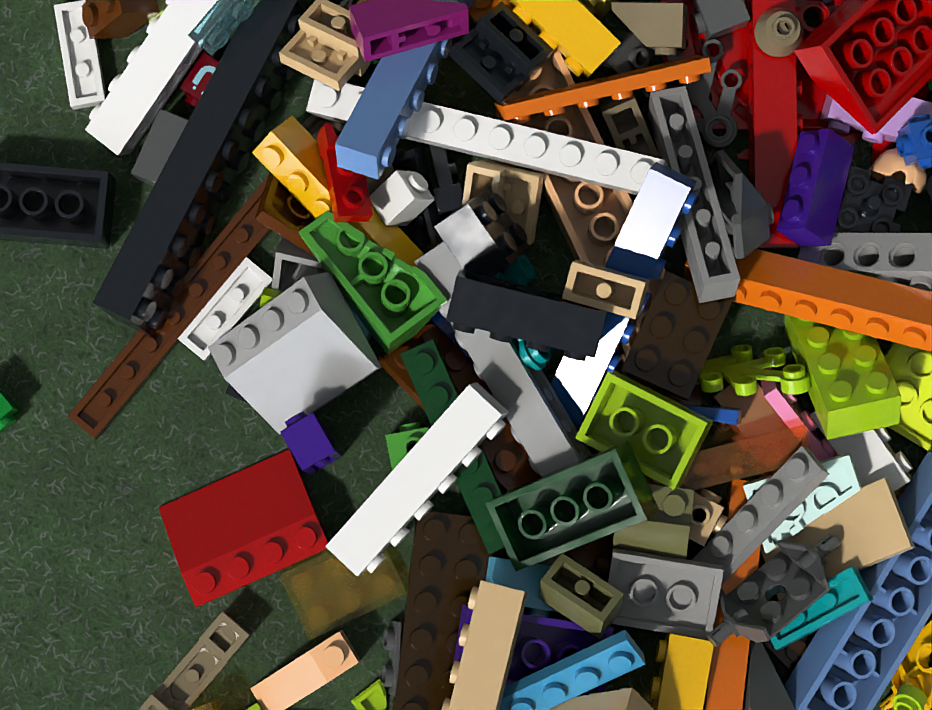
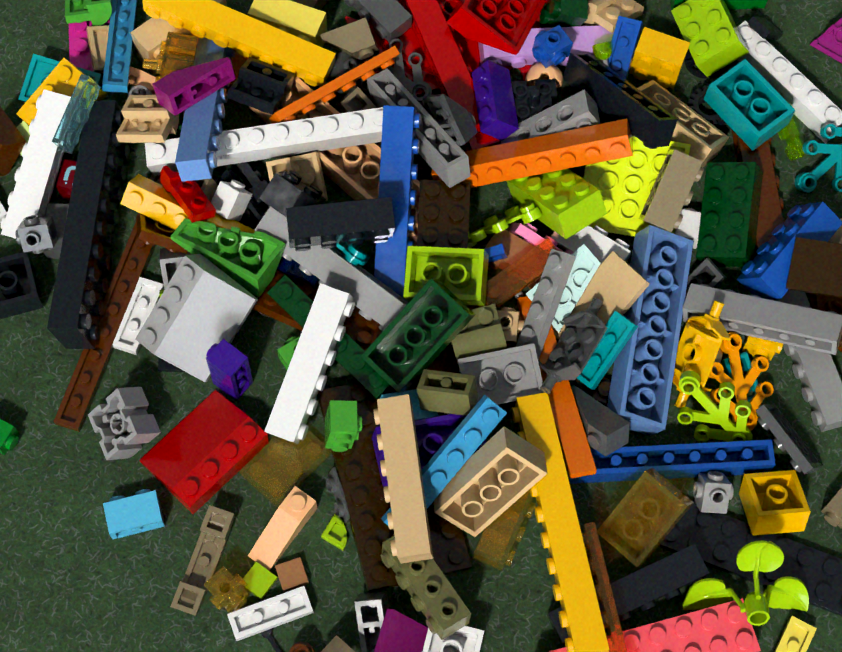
camera: 25 degrees left, 15 degrees down
(125, 581) = (133, 513): none -> medium azure brick
(128, 155) = (36, 234): none -> brick
(153, 459) = (124, 423): none -> light grey brick
(426, 585) = (342, 425): none -> bright green brick
(605, 289) = (393, 185): tan brick -> none
(778, 32) = (432, 16): dark tan cone -> none

